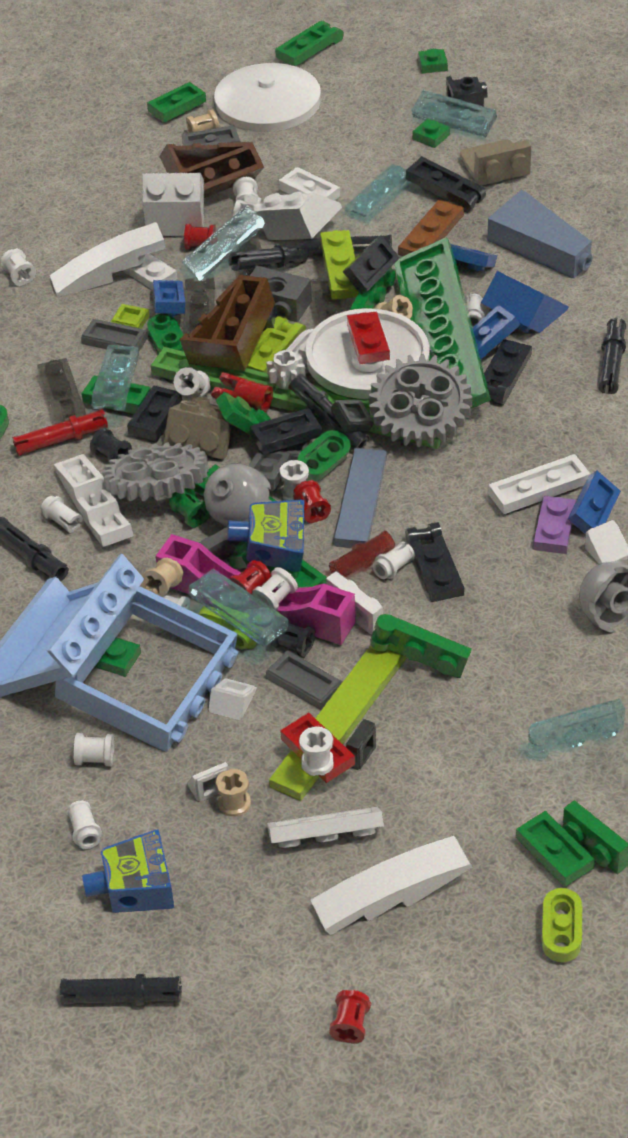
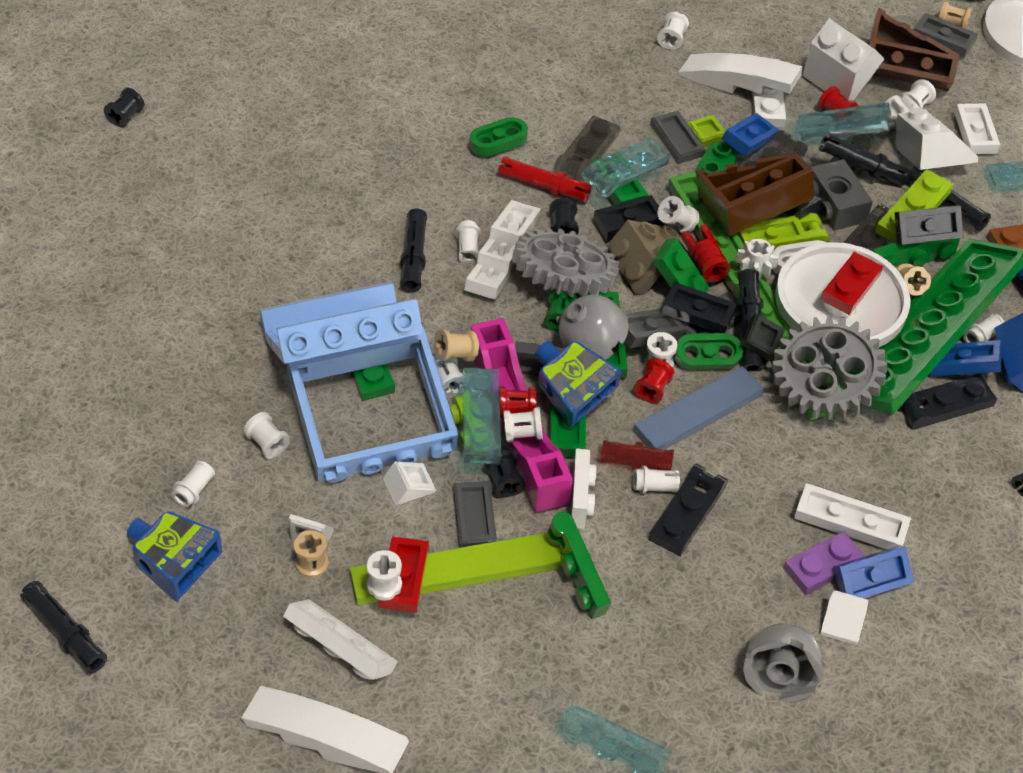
camera: 40 degrees right, 5 degrees up
(362, 743) = (443, 602): pearl dark grey tile -> none

